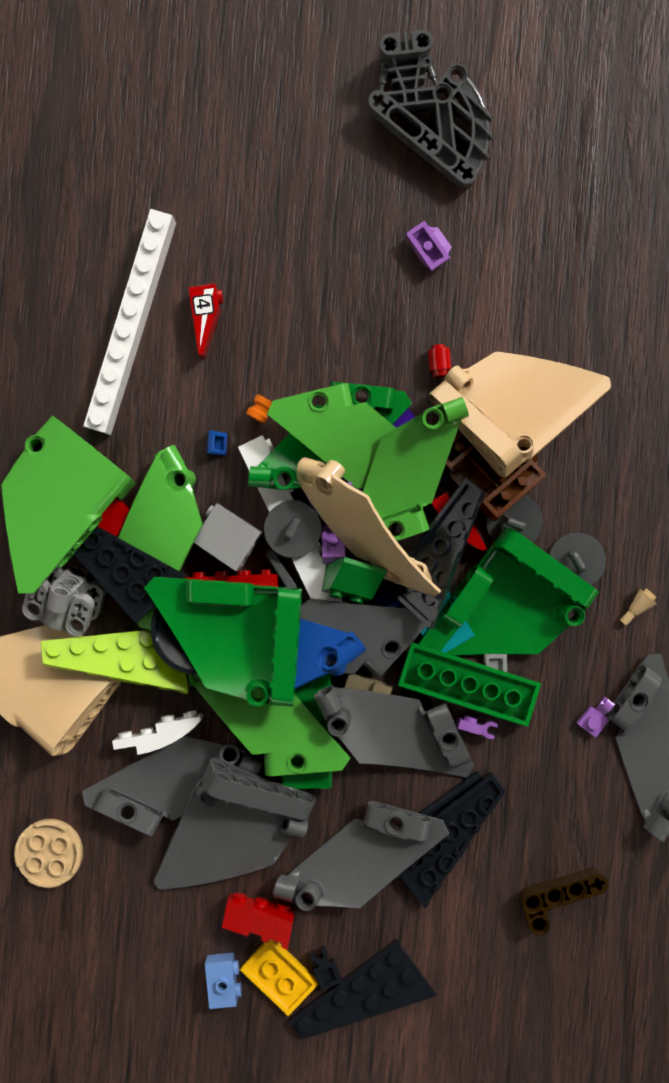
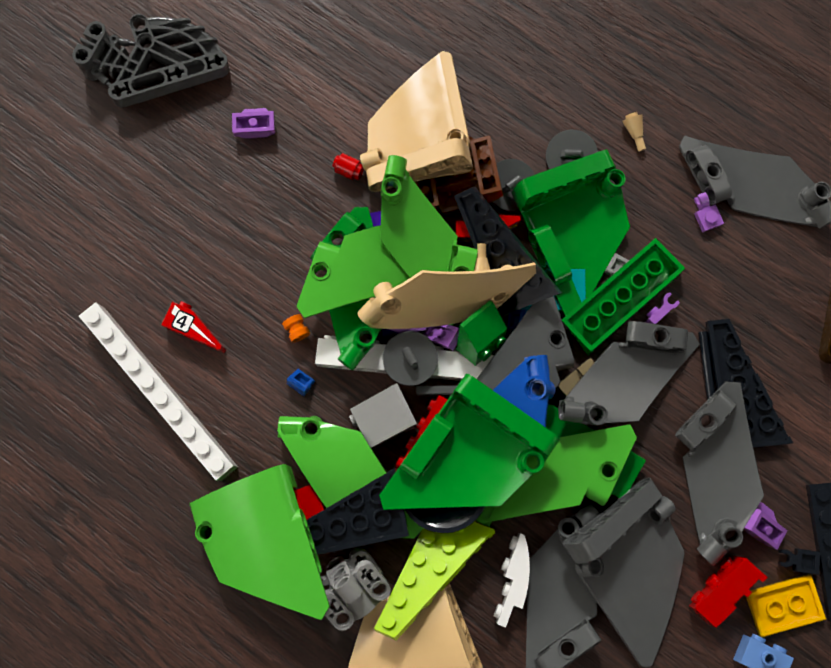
camera: 55 degrees left, 10 degrees down
(336, 923) = (765, 527): none -> medium lavender slope
(414, 543) = (481, 262): none -> tan cone

